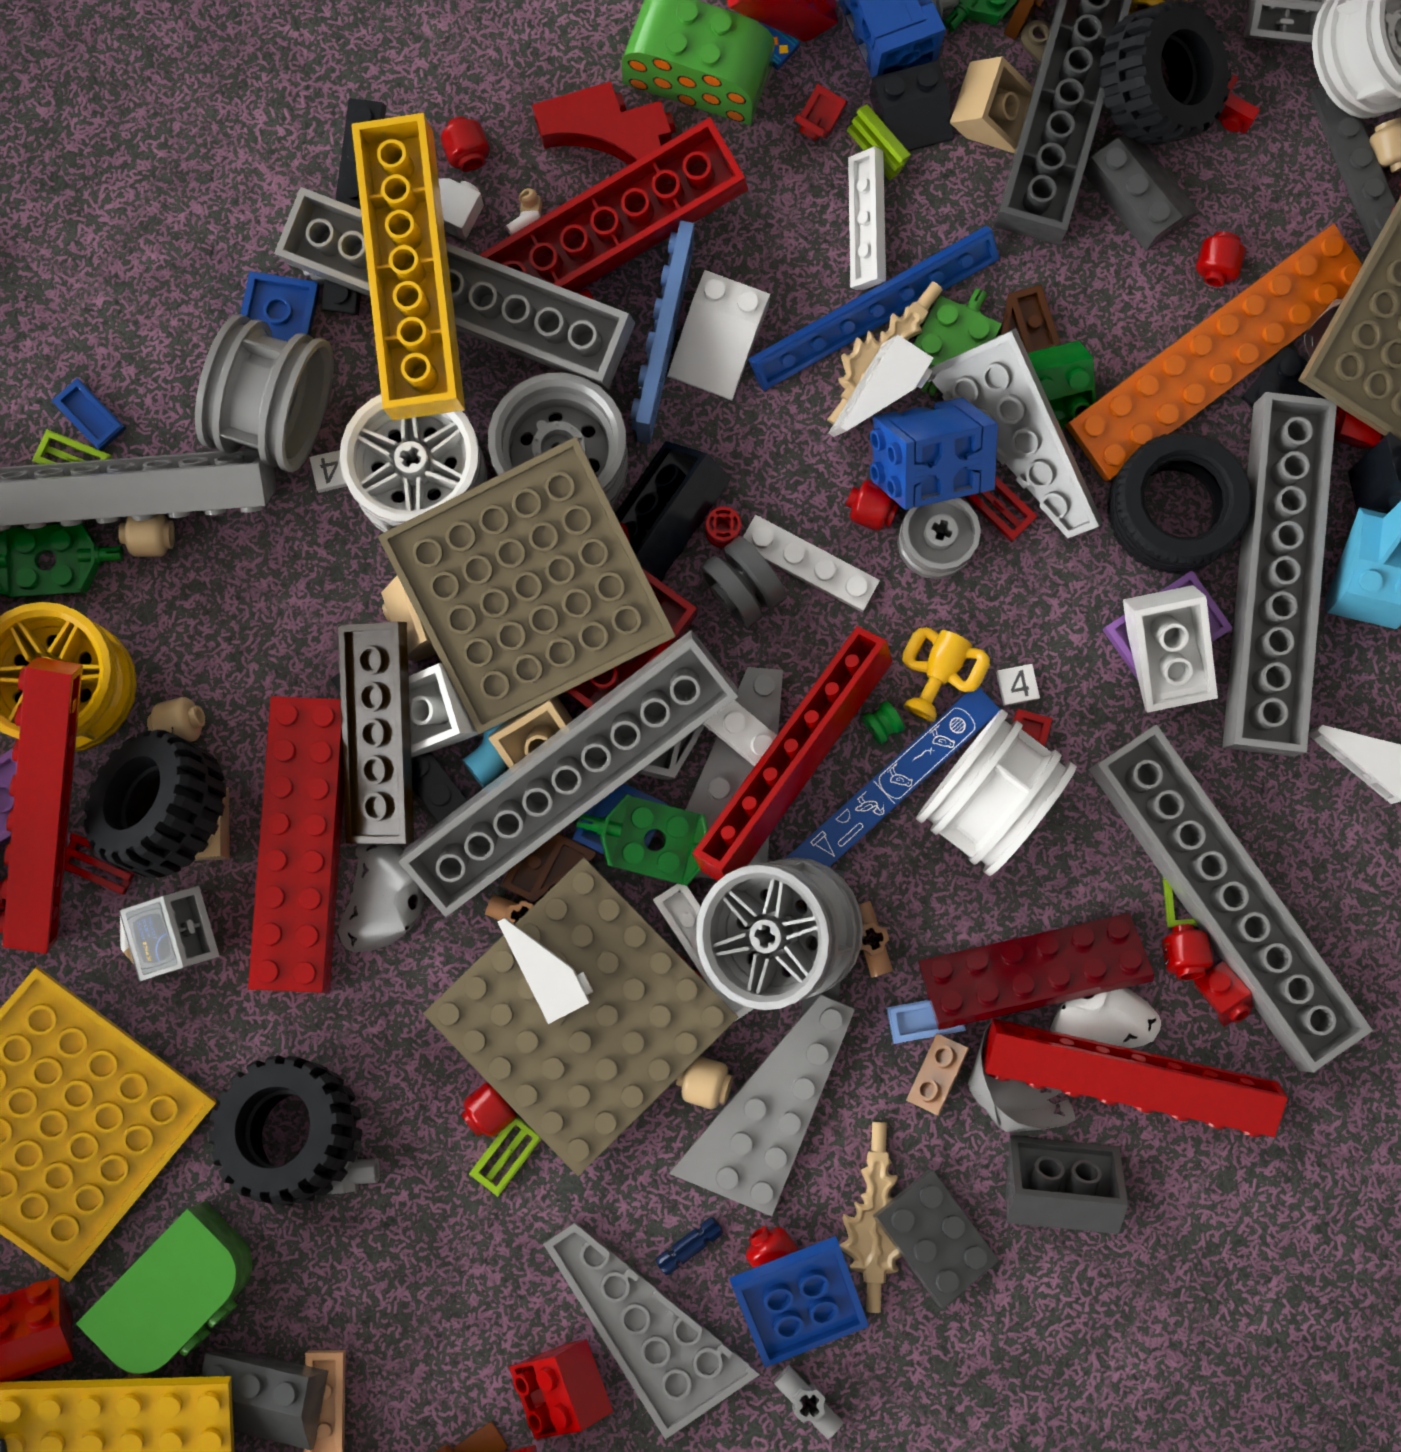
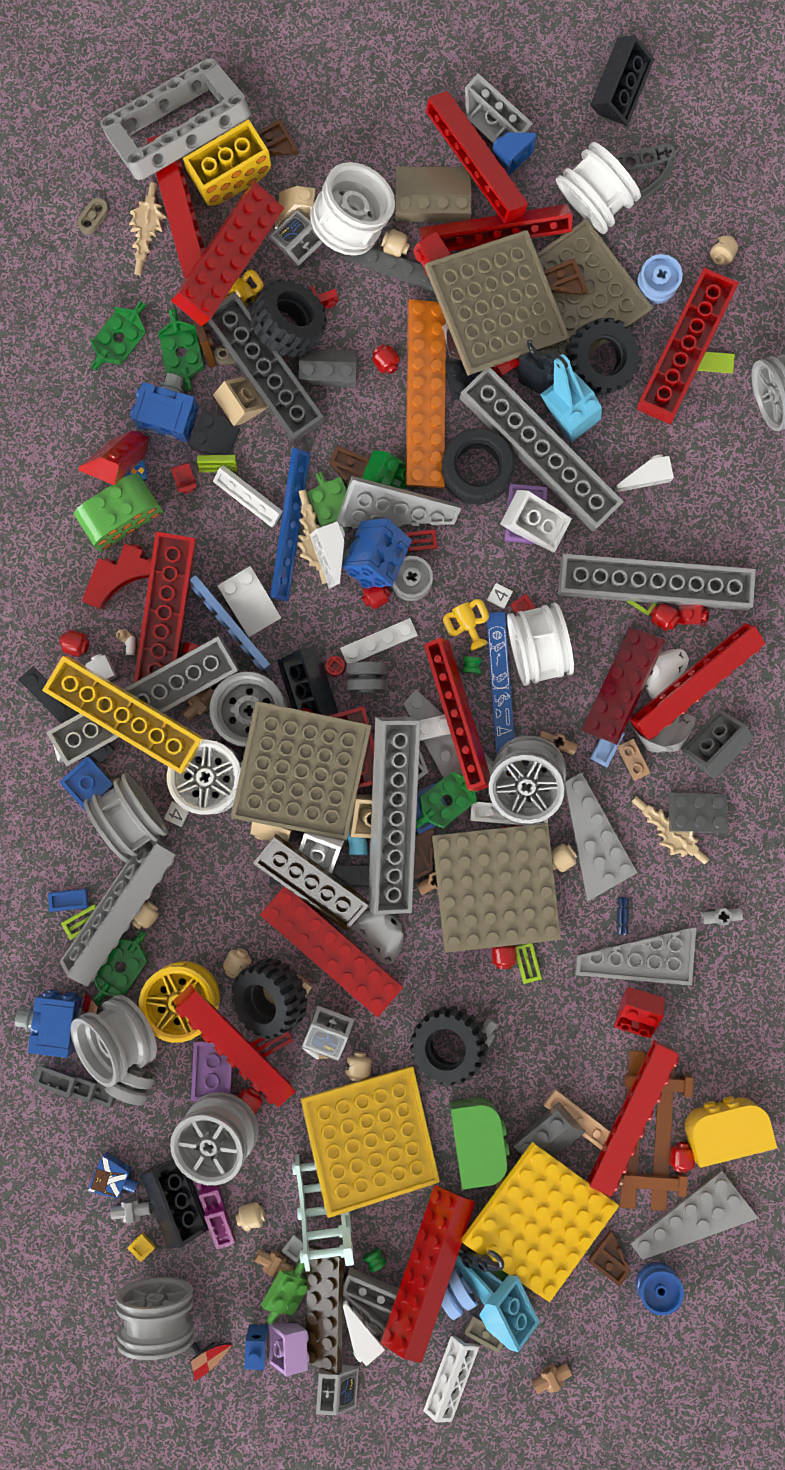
camera: 50 degrees left, 5 degrees up
(155, 1020) = (358, 1066): none -> tan head
(507, 376) = (199, 704): none -> medium nougat axle
(549, 977) = (474, 888): white slope -> none
(769, 1245) = (653, 884): red head -> none
(799, 1301) = (680, 888): blue plate -> none

